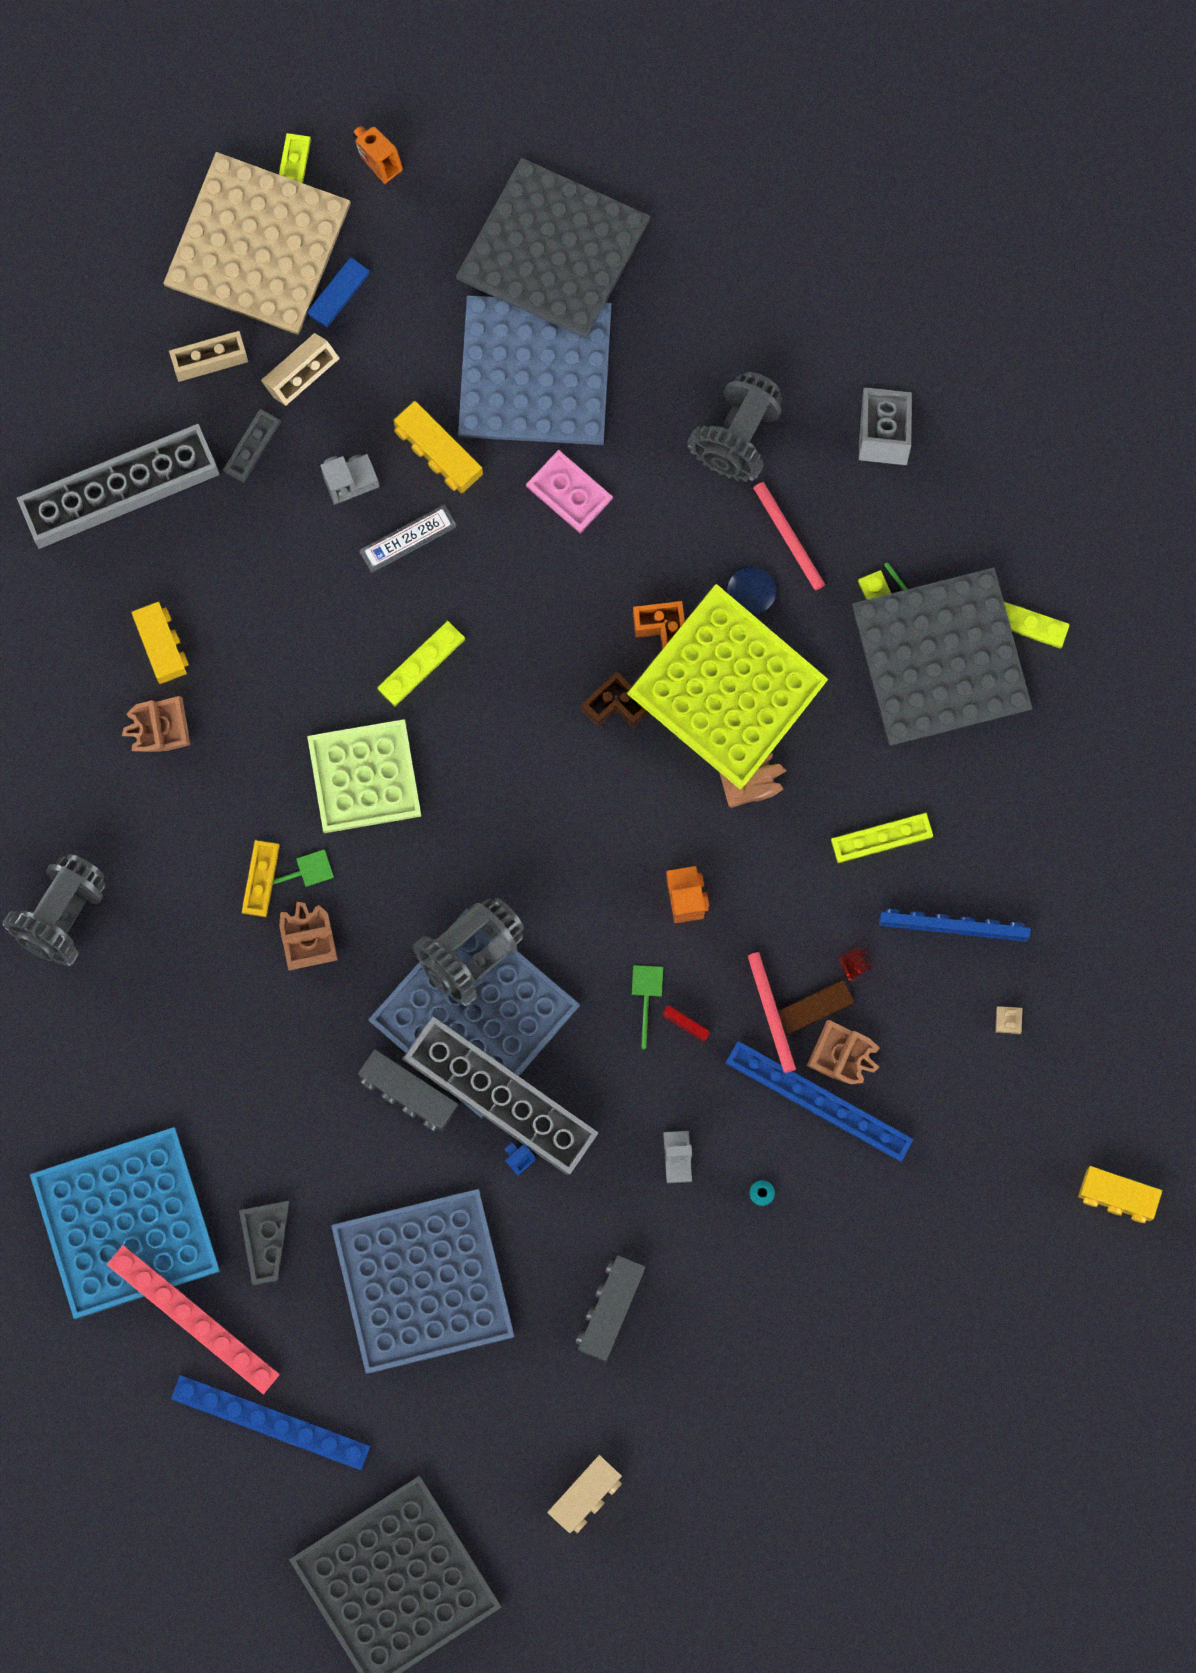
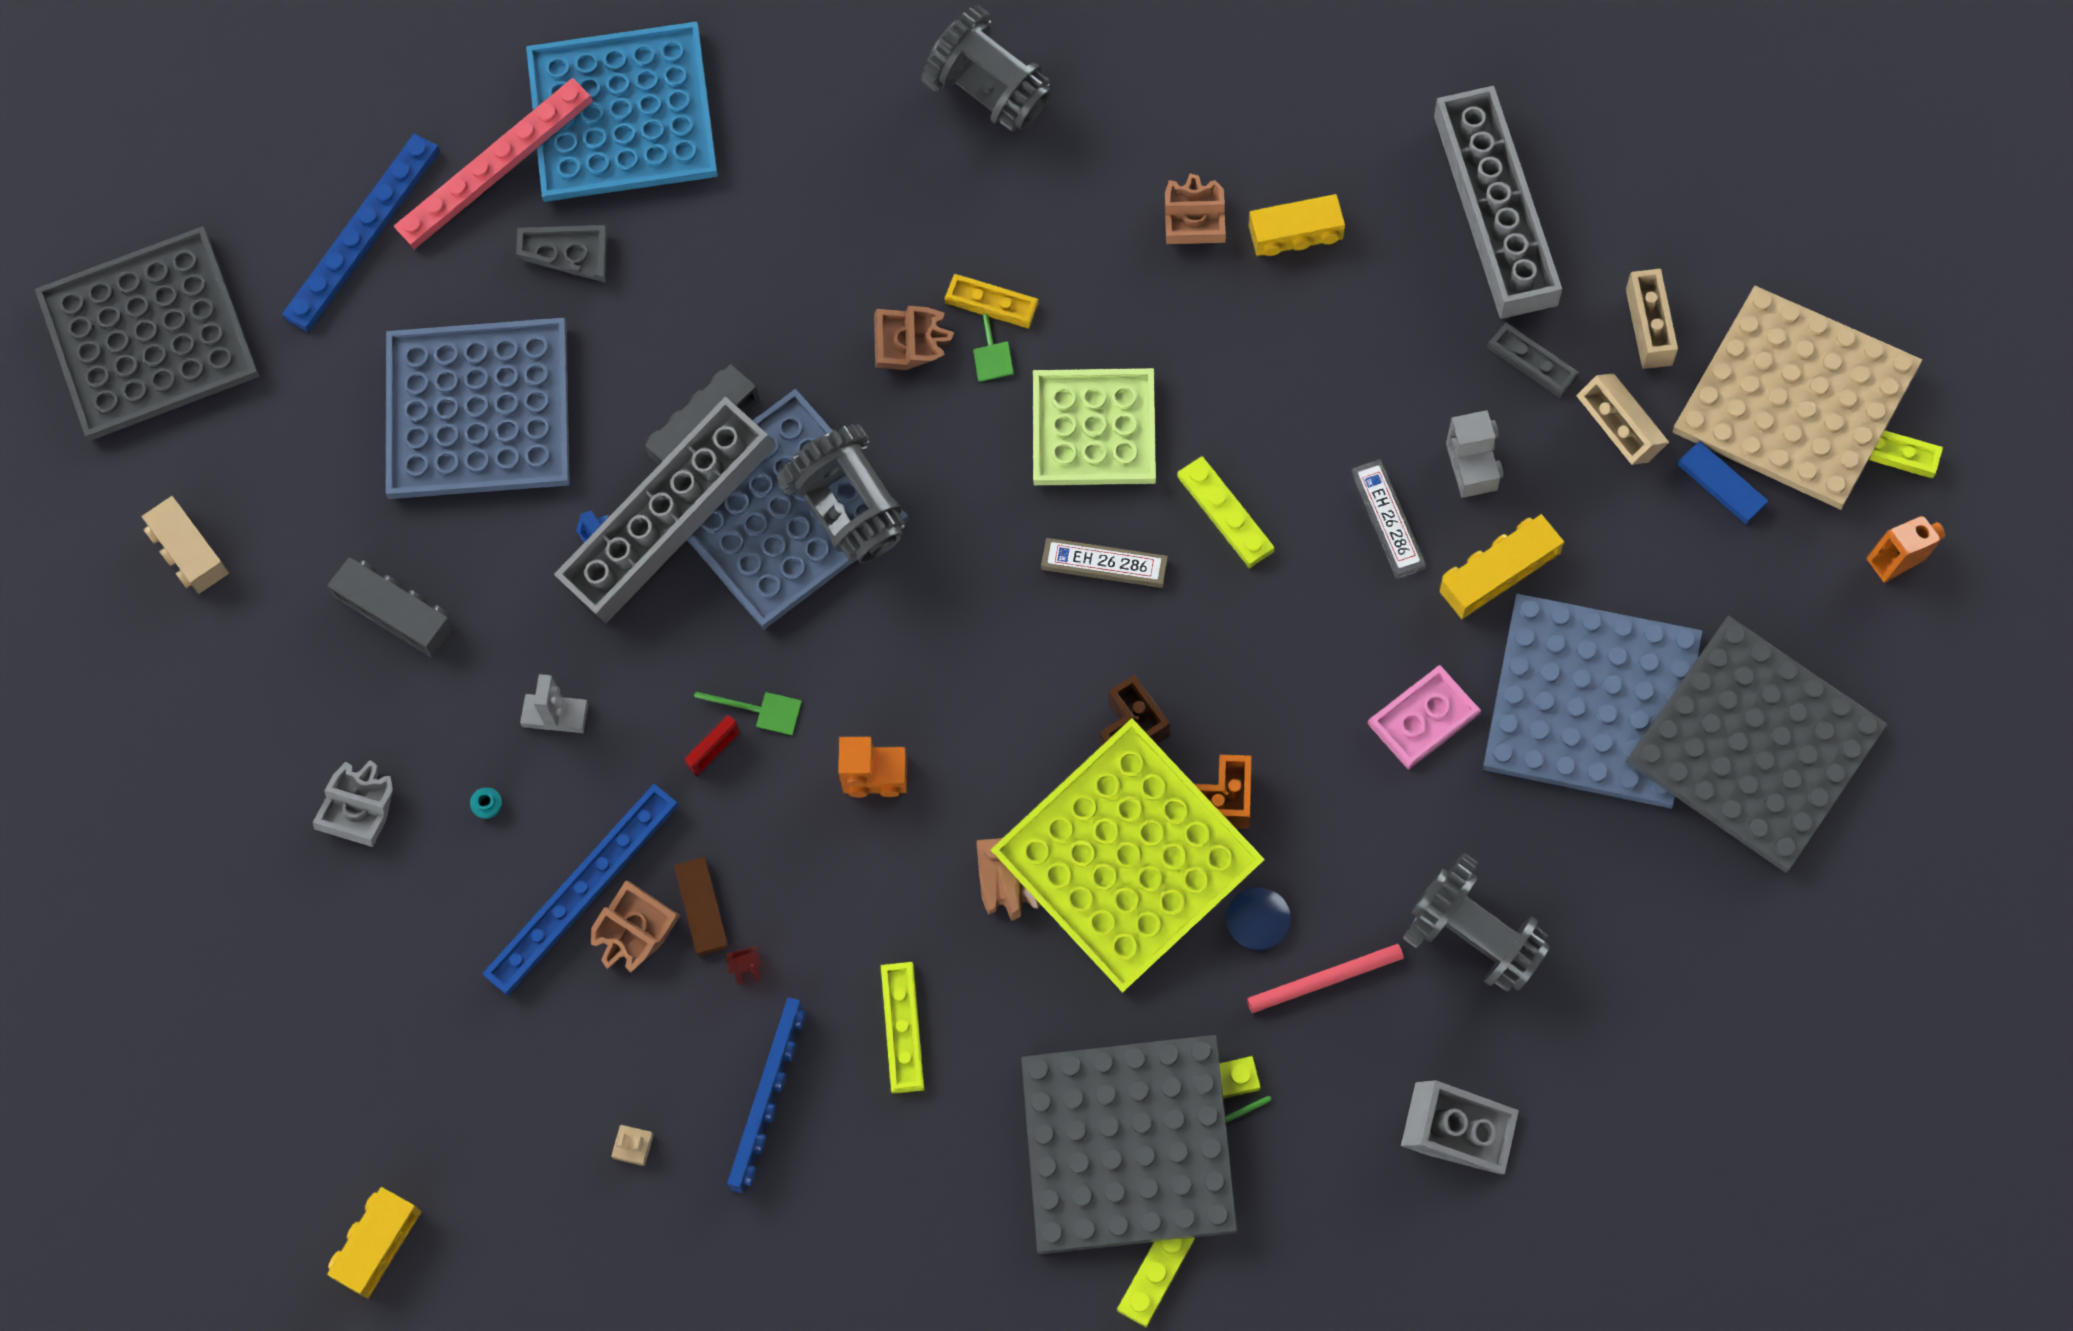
camera: 105 degrees right, 10 degrees down
(480, 749) = (1104, 562): none -> tile
(771, 1012) = (703, 848): coral piece -> none
(782, 1294) = (355, 804): none -> light grey plate

